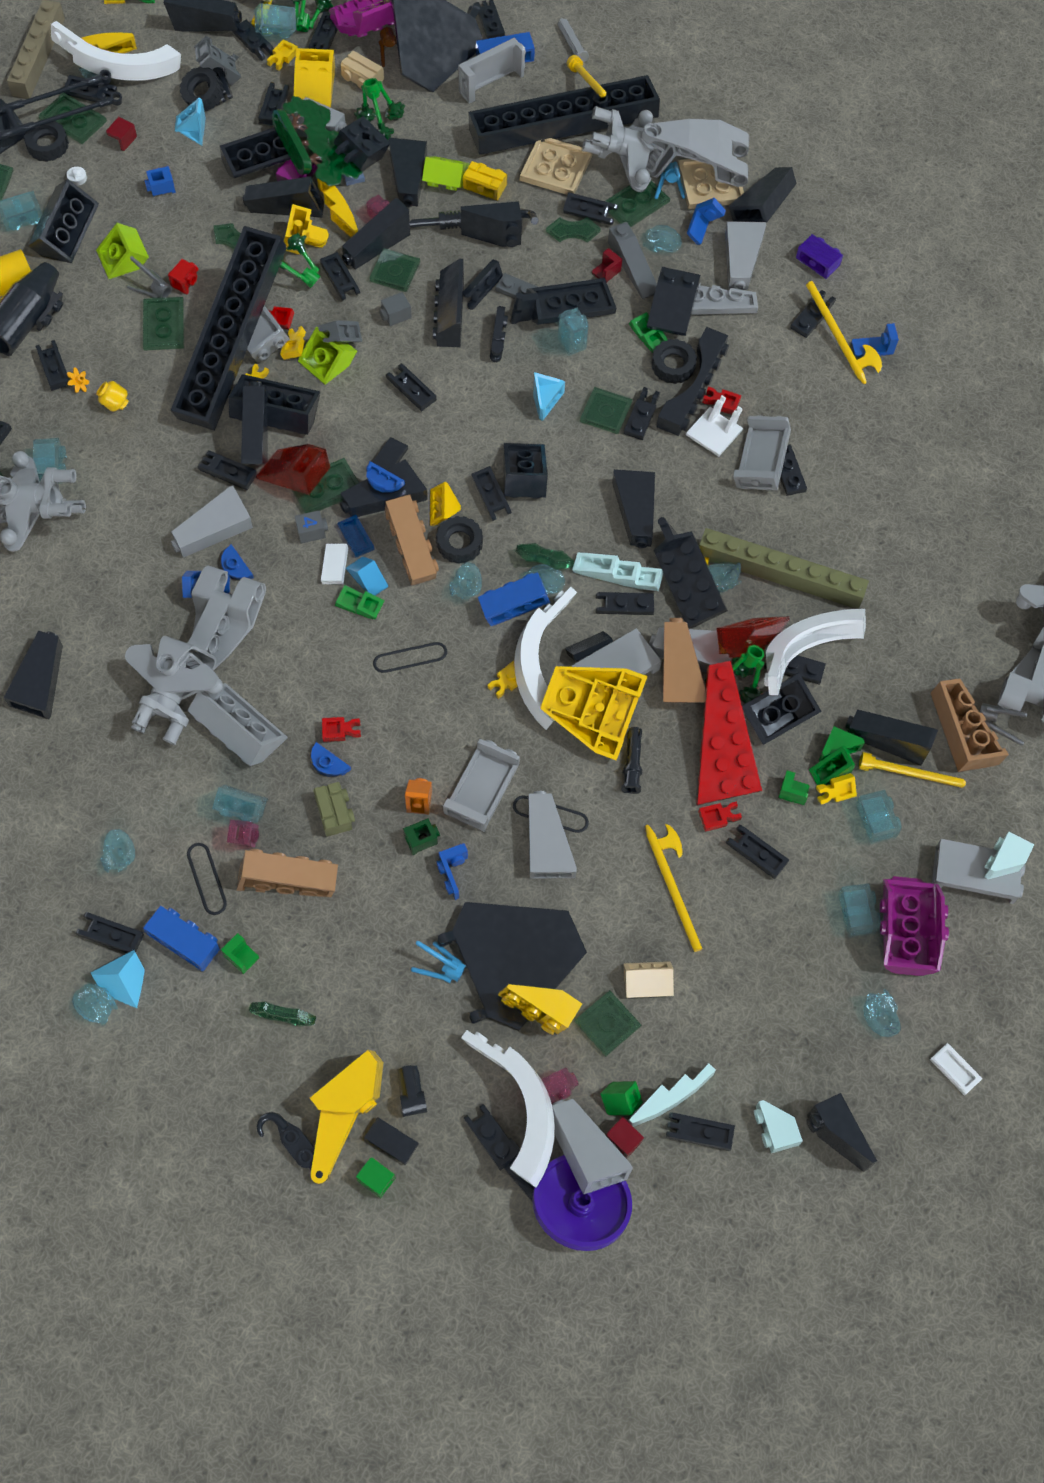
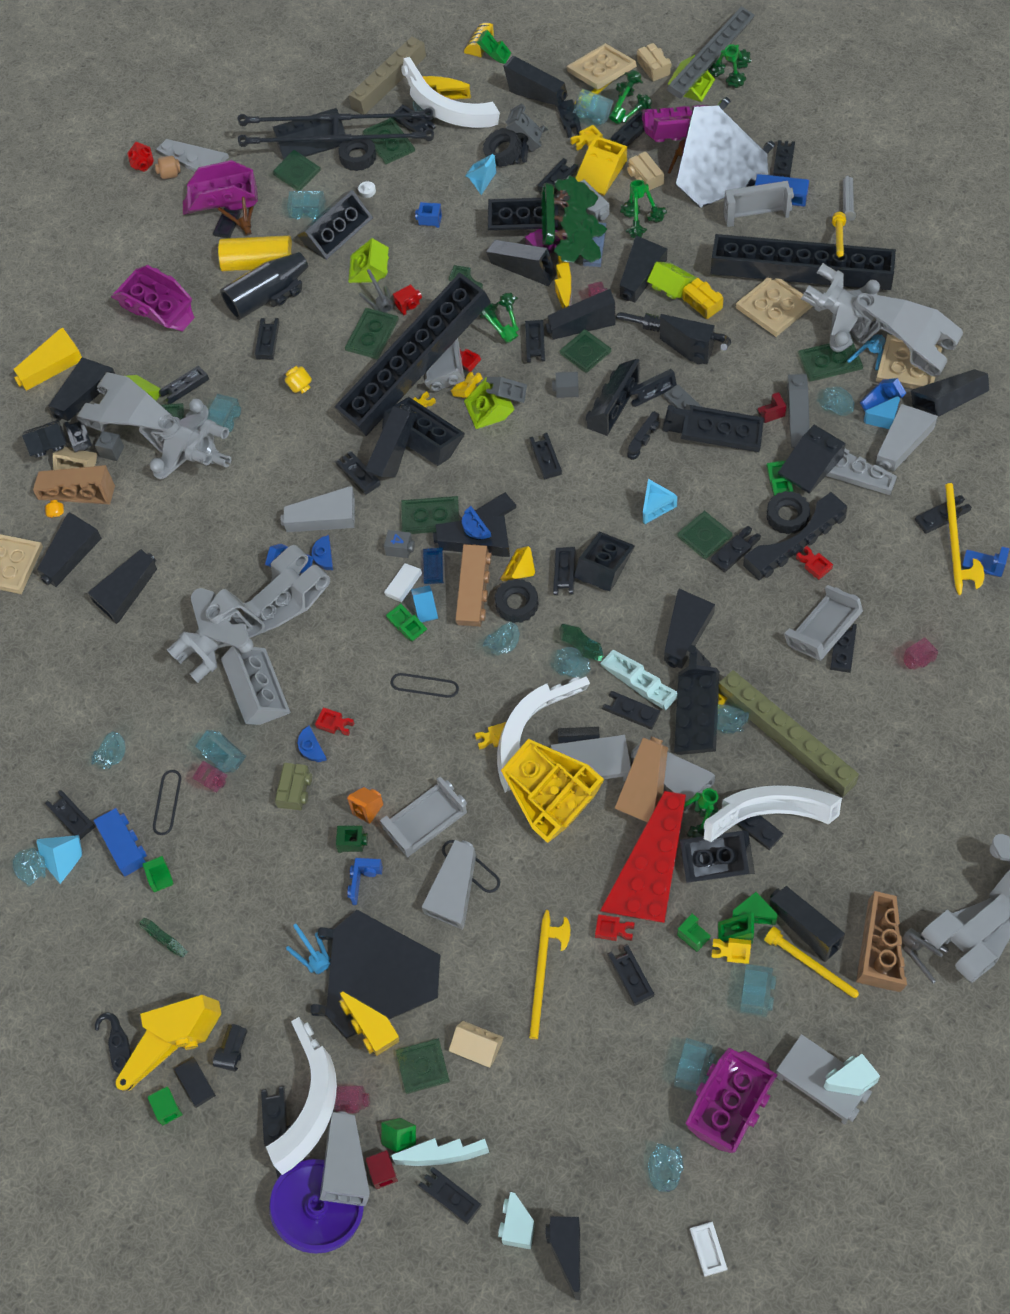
camera: 35 degrees right, 5 degrees down
(78, 380) = (279, 357): light orange plant -> none
(122, 131) = (420, 164): dark red panel -> none
(286, 874) = (226, 824): medium nougat wedge -> none
(296, 468) = (411, 491): clear red slope -> none
(300, 223) = (521, 287): yellow brick -> none
(361, 143) = (608, 233): black hinge -> none
(514, 599) = (533, 668): blue brick -> none
(573, 331) = (708, 454): clear light blue brick -> none
(582, 229) = (754, 364): clear green tile -> none
(589, 208) = (782, 351): black hinge -> none
(632, 769) = (559, 856): black pin -> none
(714, 238) = (882, 414): none -> dark azure slope
(714, 430) = (794, 587): white plate -> none
(737, 637) = (719, 777): clear red slope -> none
(819, 256) = (976, 463): dark purple brick -> none
(862, 450) = (920, 654): none -> clear pink brick

